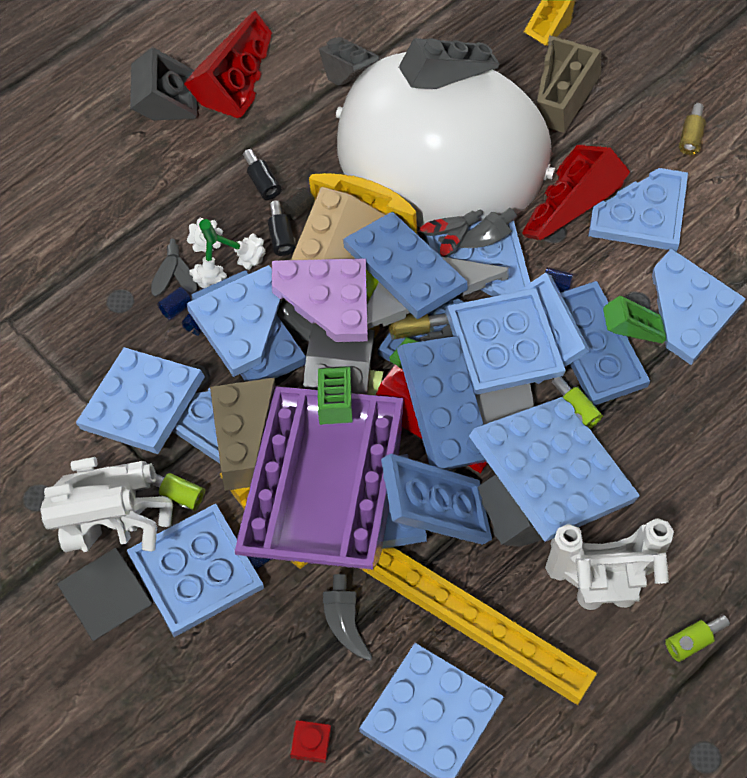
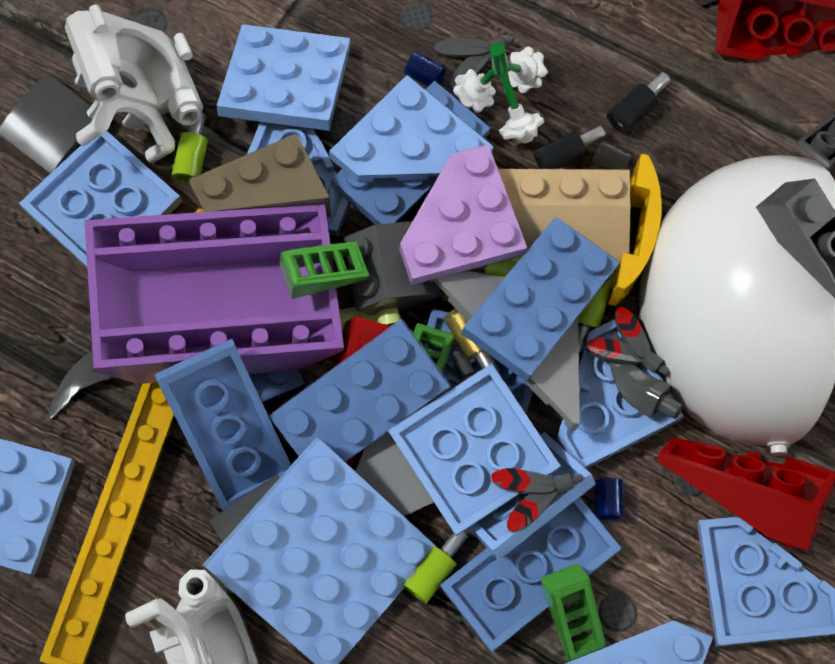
camera: 80 degrees right, 10 degrees up
(551, 304) = (541, 492): none -> piece

